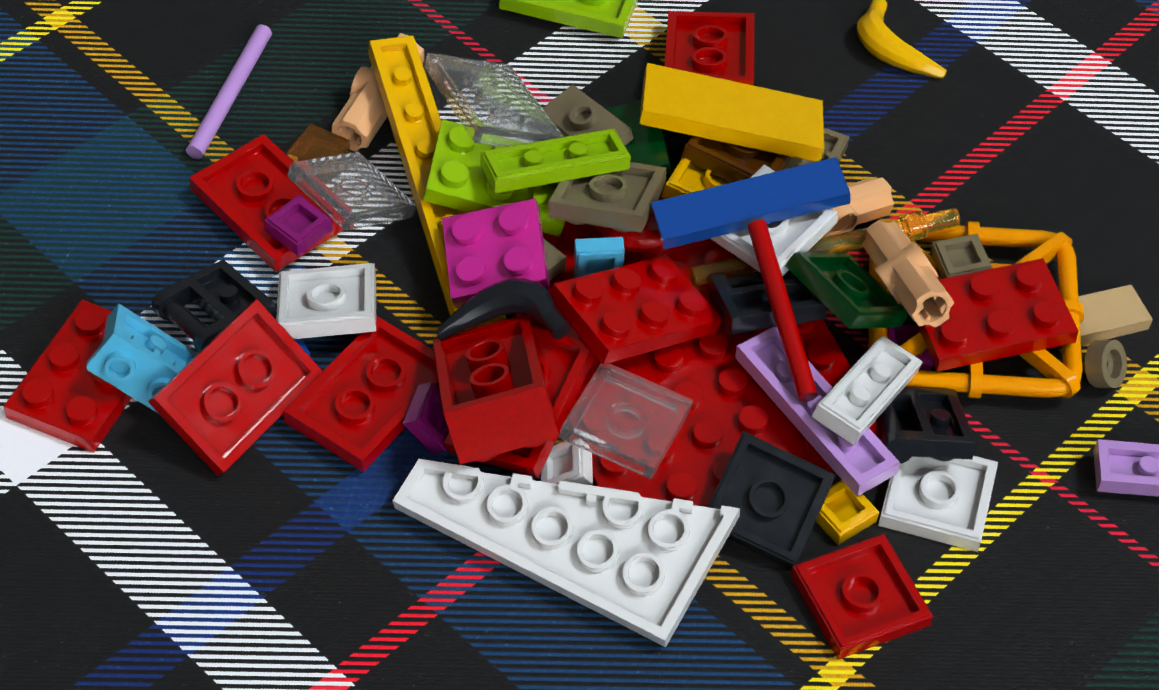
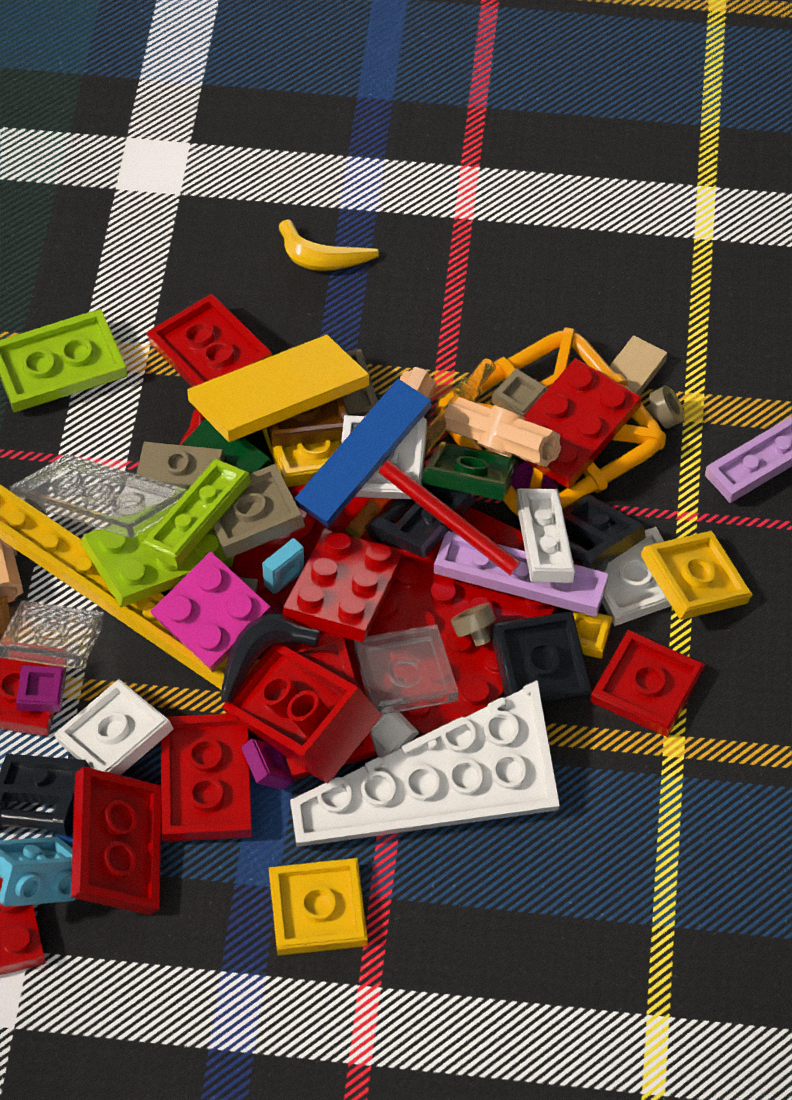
camera: 35 degrees left, 5 degrees up
(363, 572) = (317, 906): none -> yellow tile
(728, 422) = (474, 622): none -> dark tan tile
(997, 529) = (696, 575): none -> yellow tile

